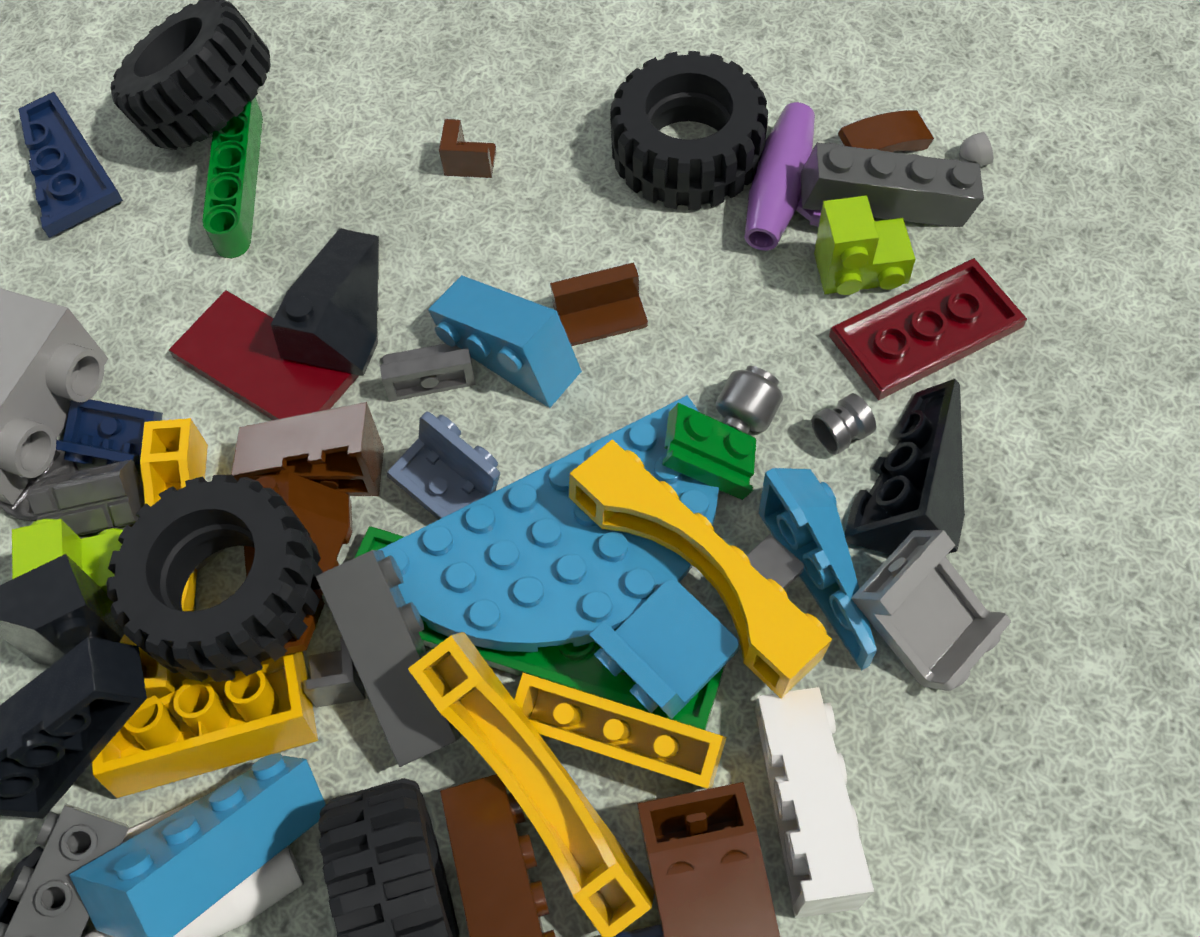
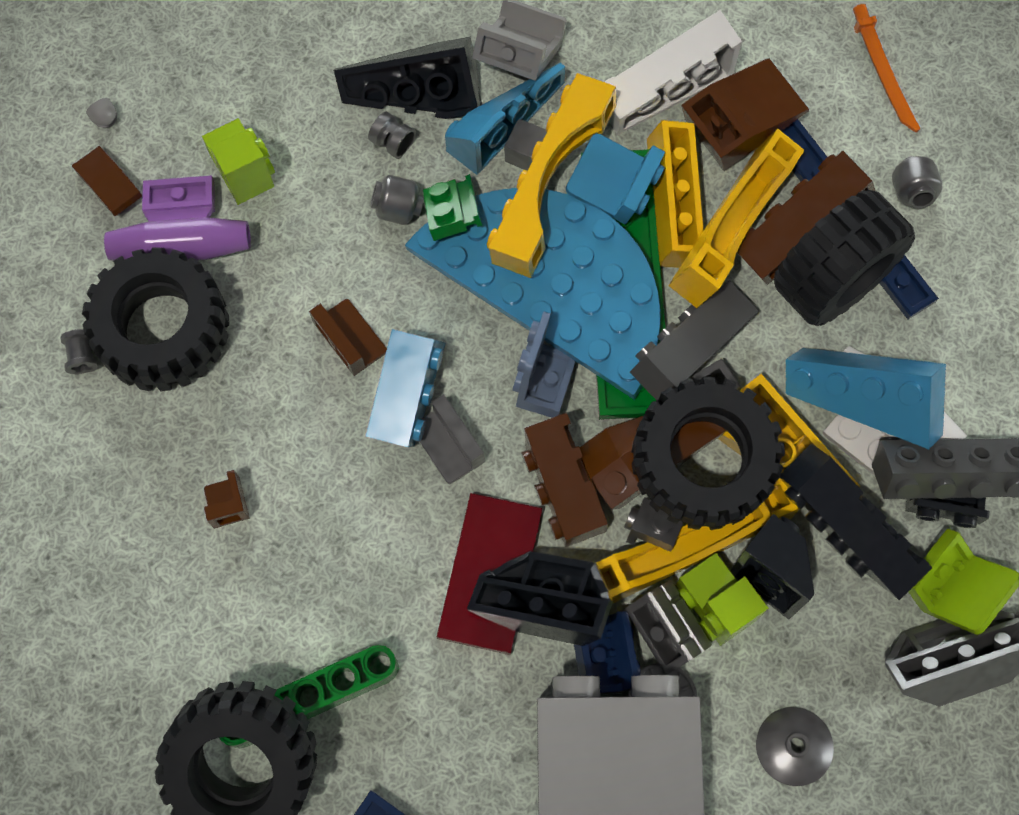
camera: 115 degrees left, 10 degrees up
(177, 373) = (545, 598): none -> black wedge
(333, 306) = (422, 532): black wedge -> none
(895, 183) = (173, 152): dark grey brick -> none
(926, 328) = (284, 108): dark red tile -> none

